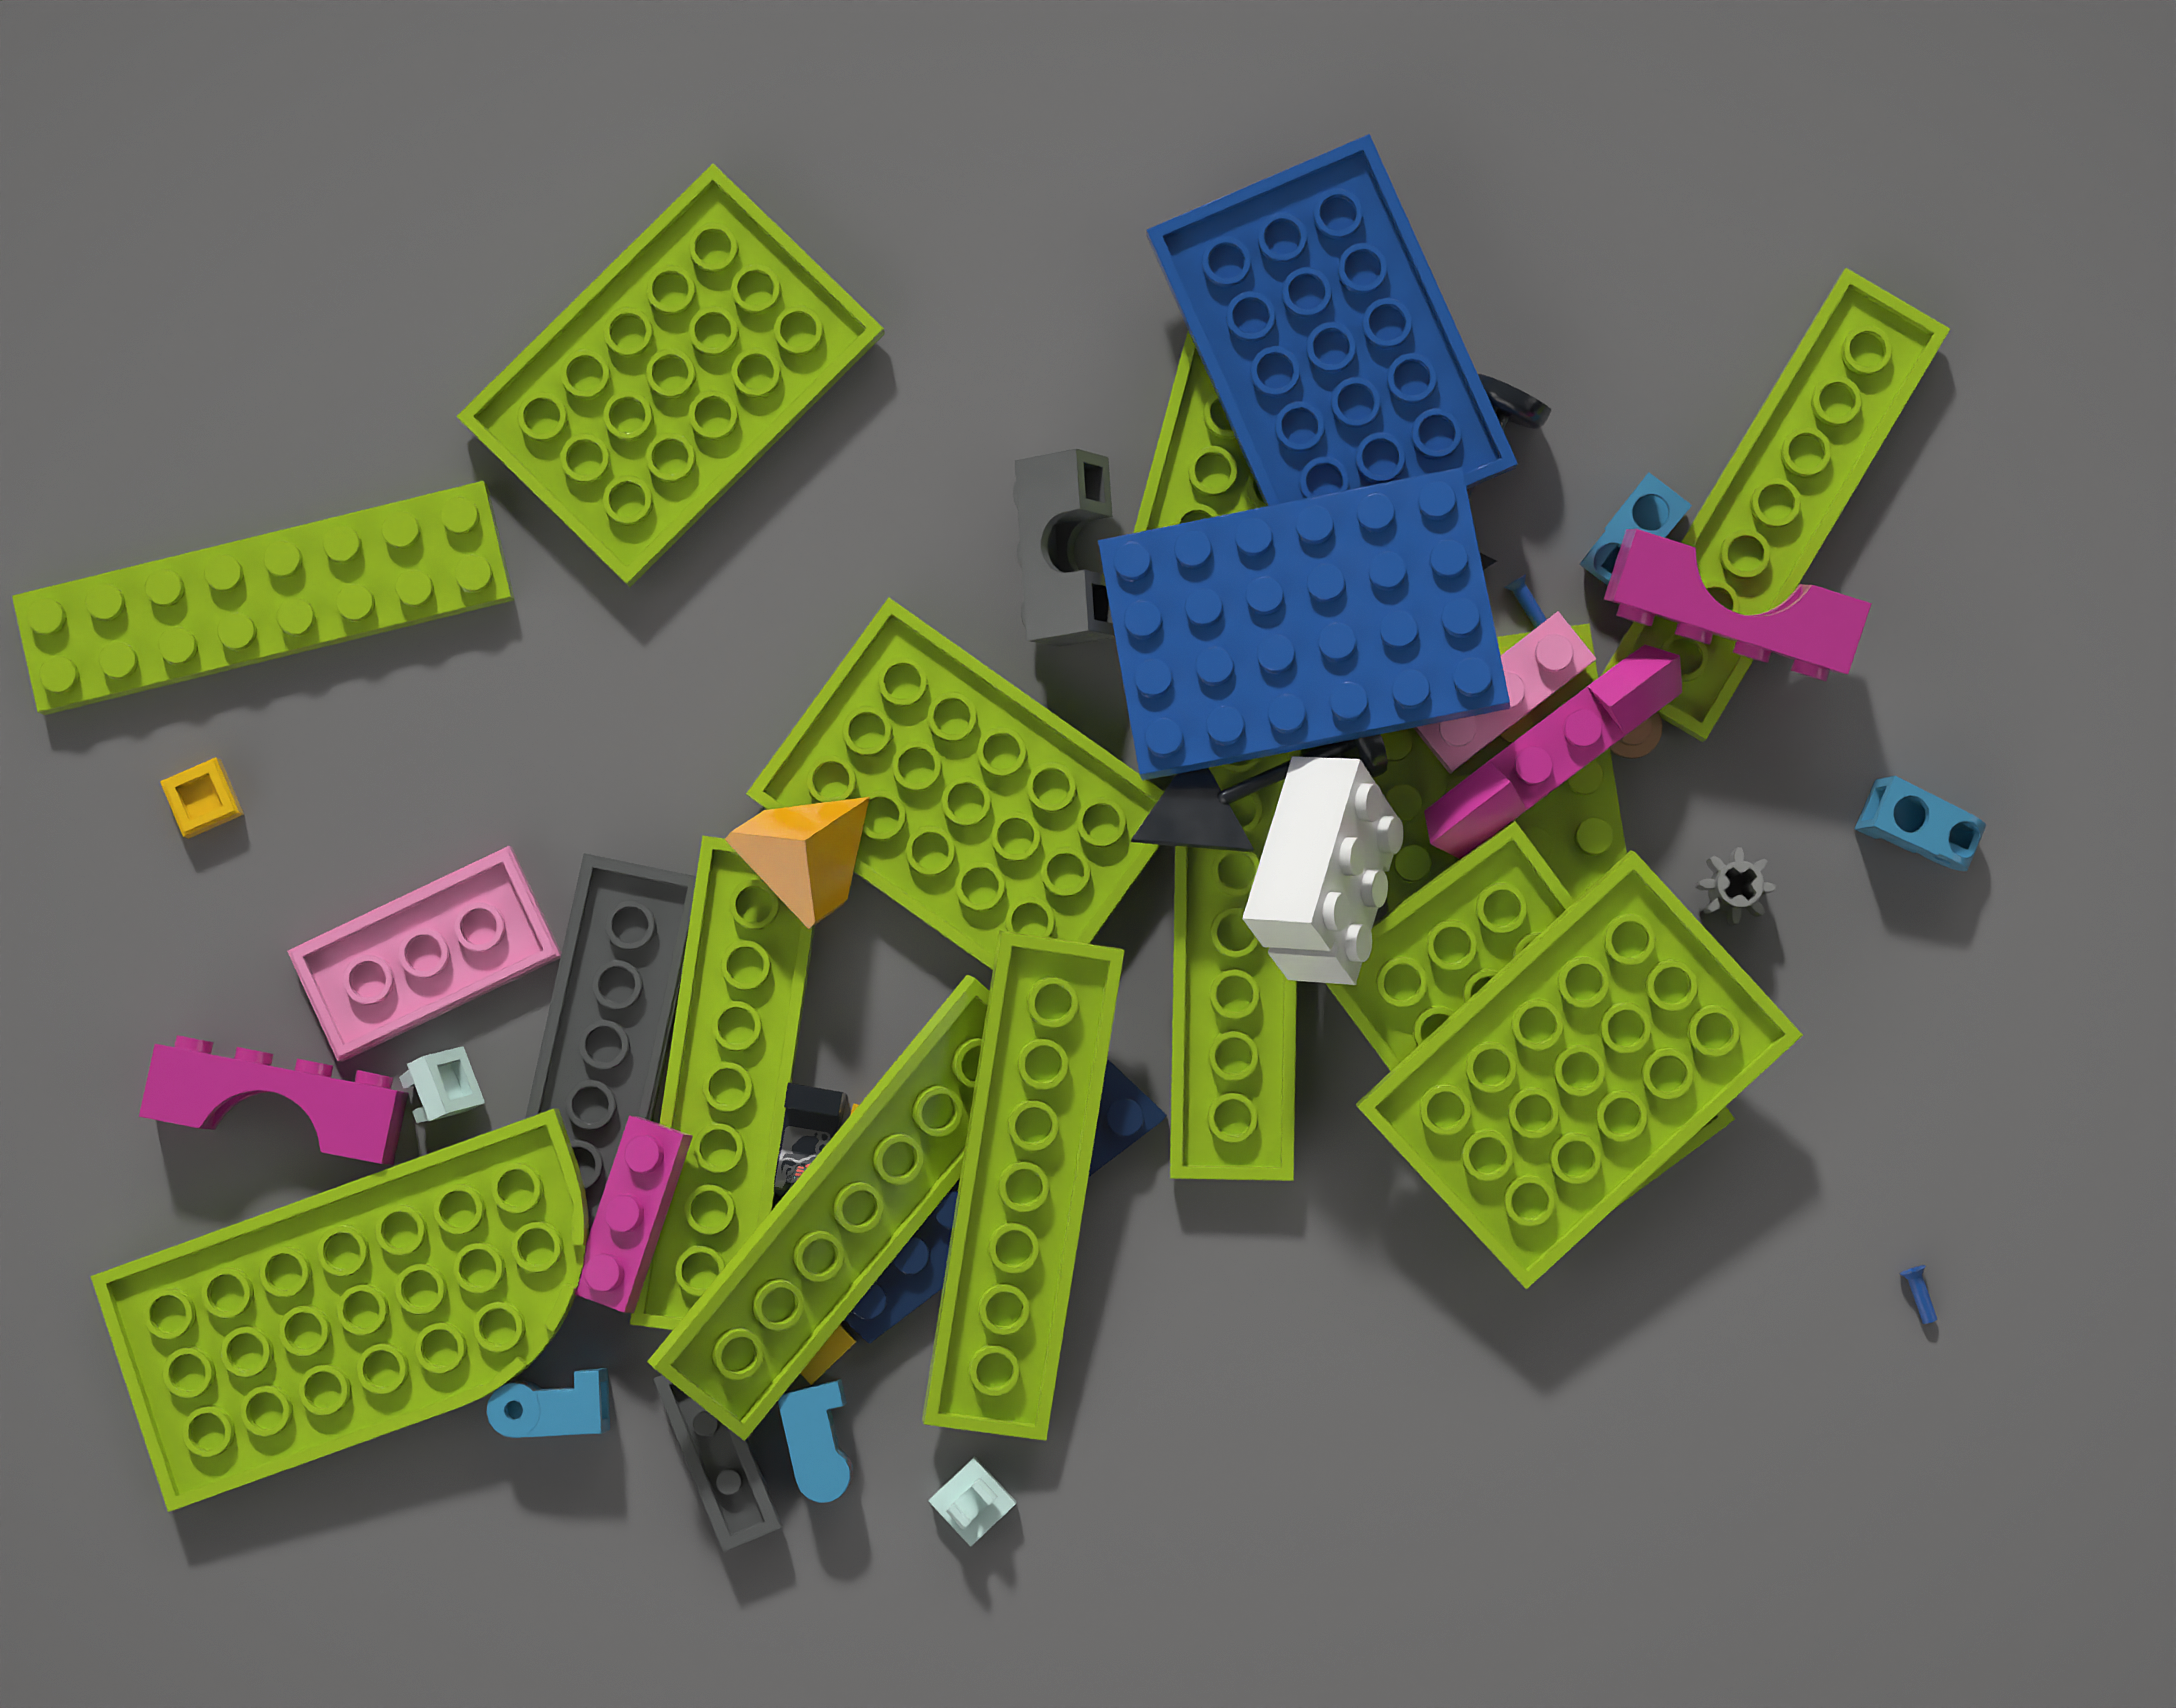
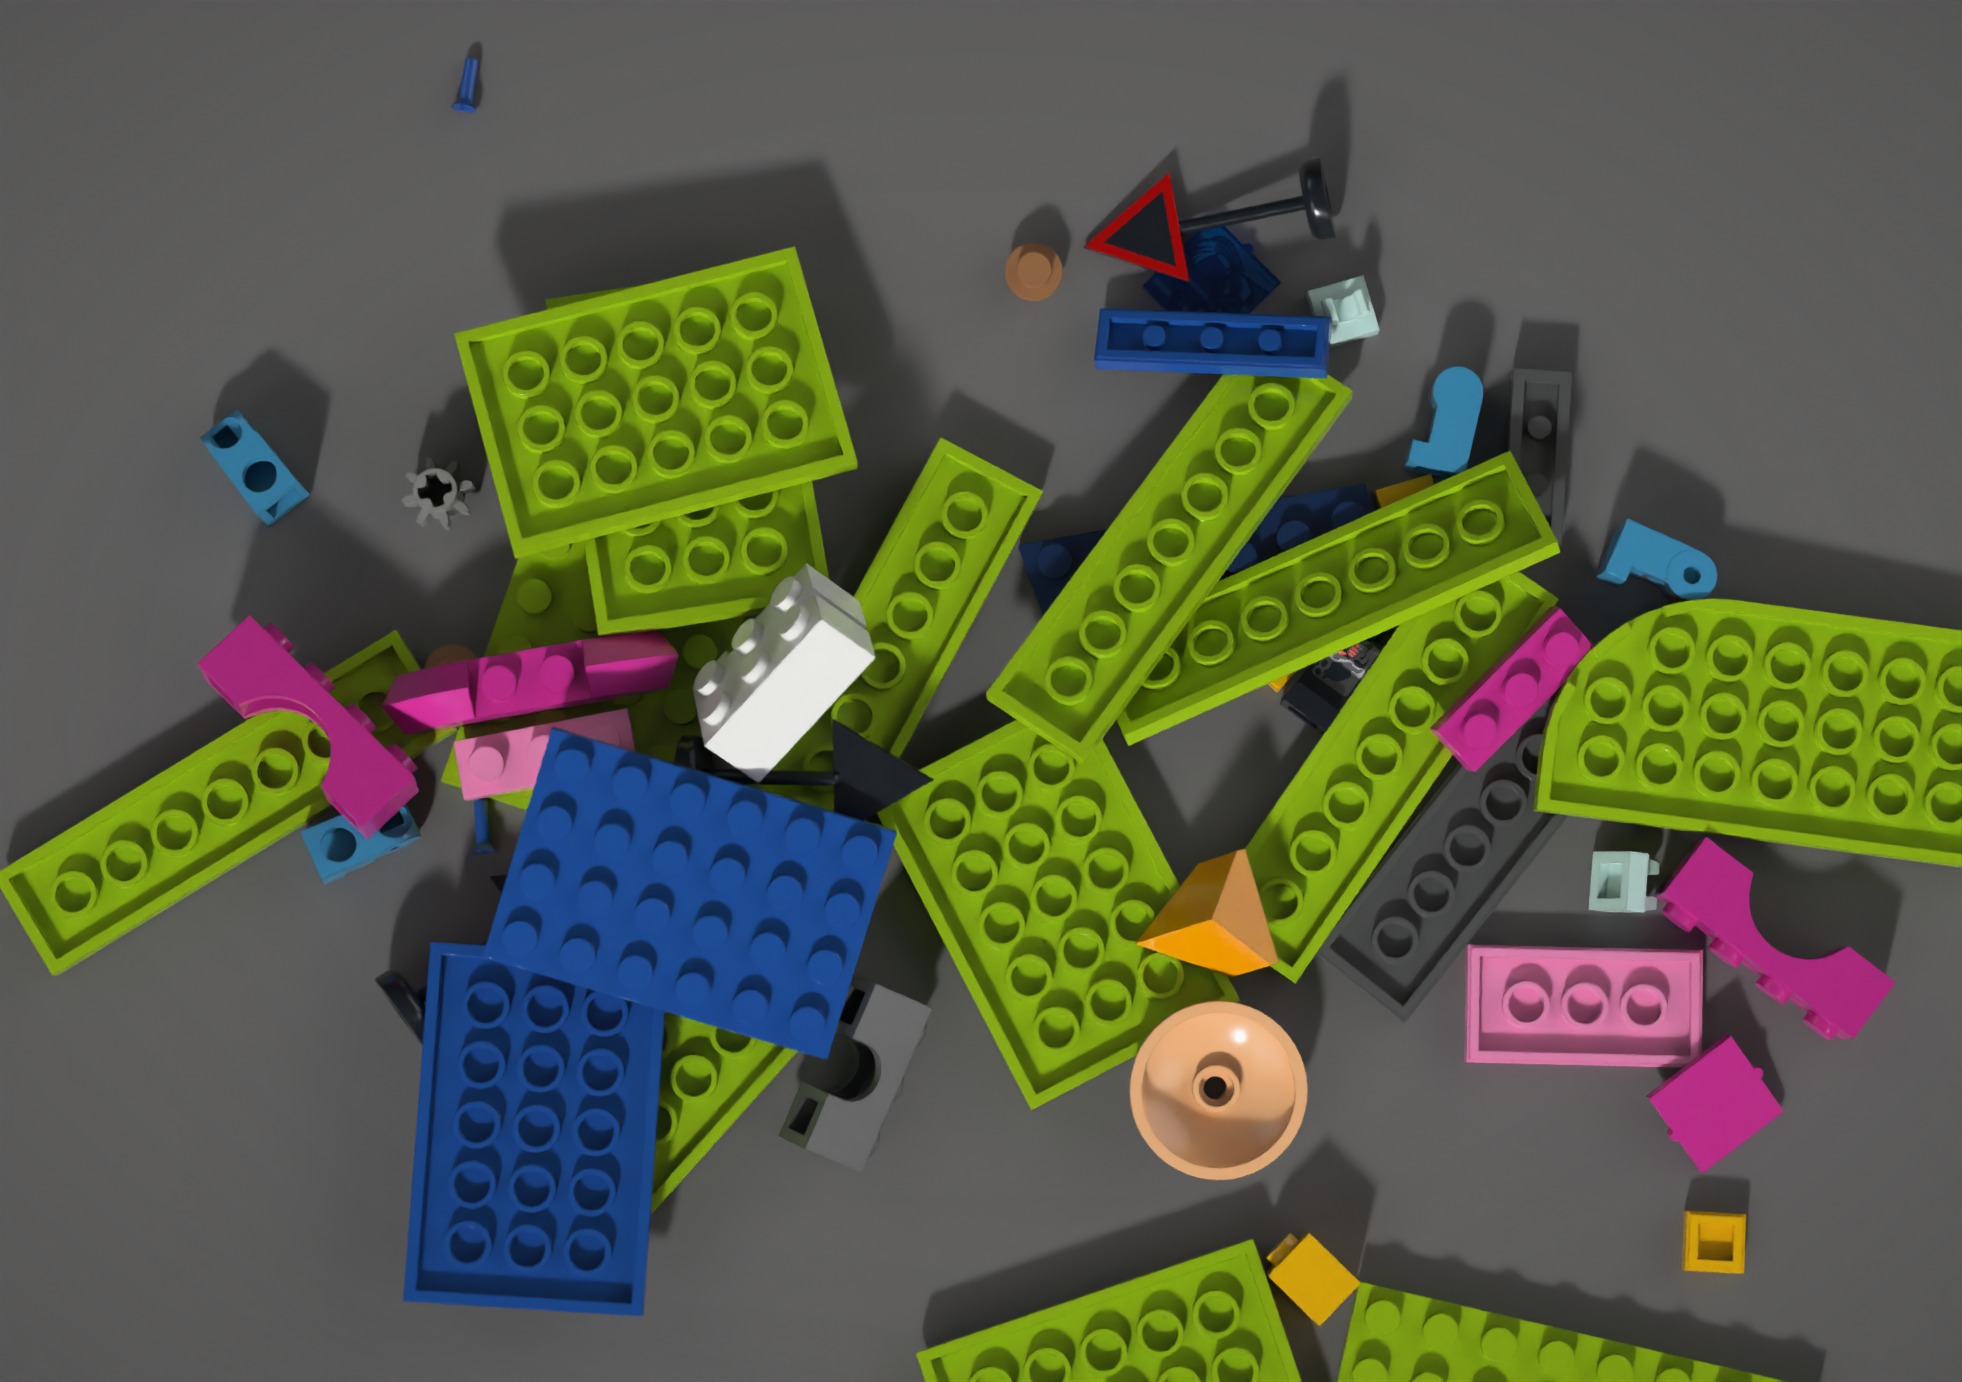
camera: 155 degrees left, 0 degrees up
(259, 924) = (1715, 1103): none -> dark pink piece
(557, 576) = (1310, 1275): none -> yellow brick
(700, 667) = (1251, 1117): none -> light nougat dish
(1080, 1404) = (1213, 343): none -> blue tile
(1112, 1465) = (1221, 277): none -> clear blue piece
(1194, 1485) = (1151, 232): none -> black piece
(1287, 1388) = (1033, 271): none -> medium nougat plate

